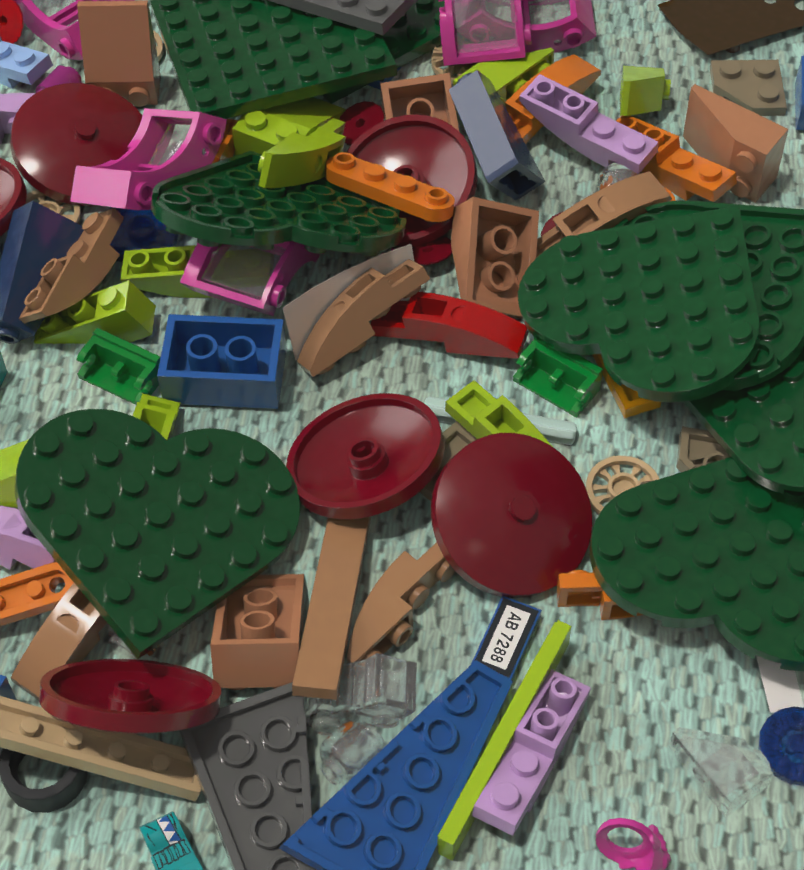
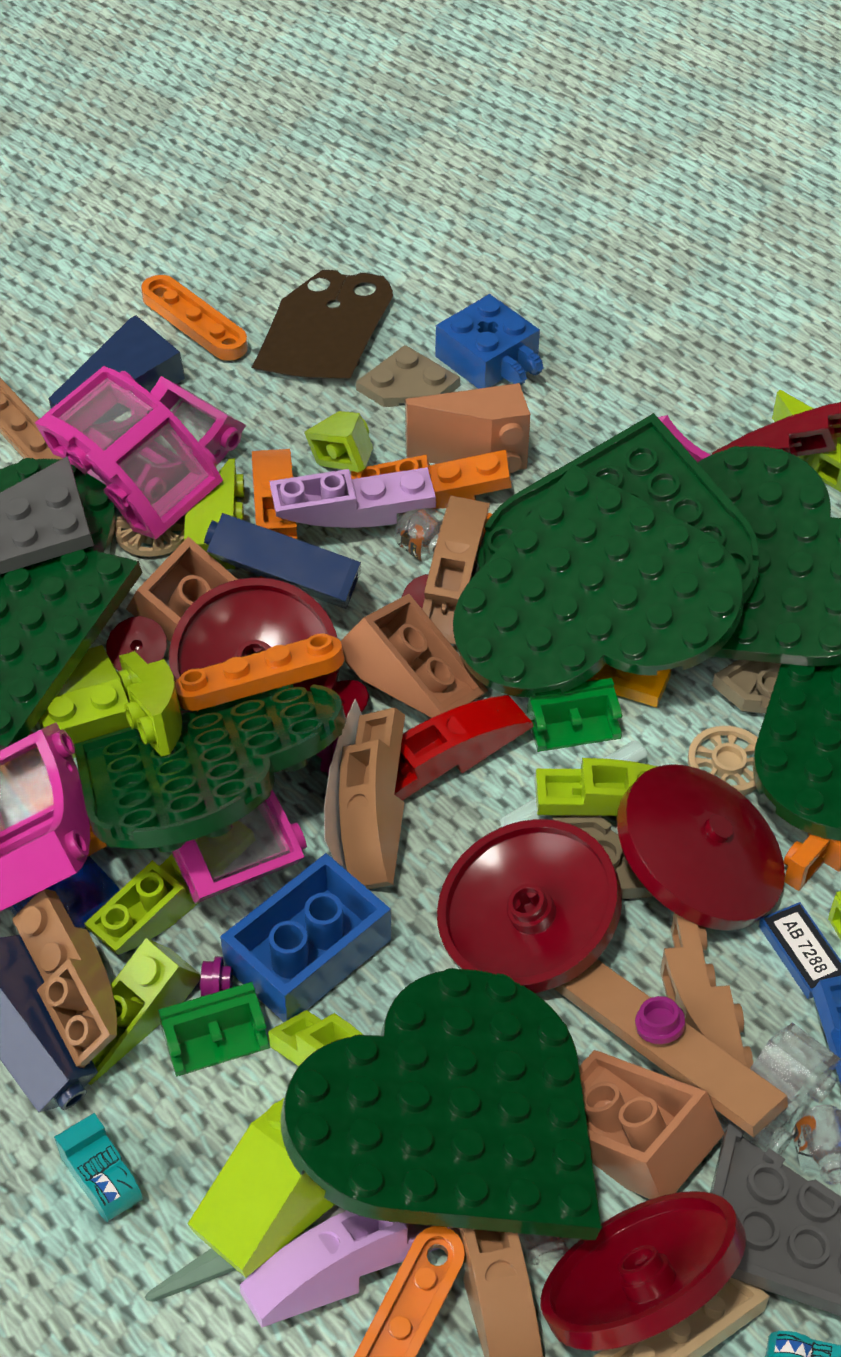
camera: 50 degrees left, 5 degrees down
(152, 339) = (215, 976): none -> magenta plate
(333, 582) = (660, 1020): none -> magenta plate

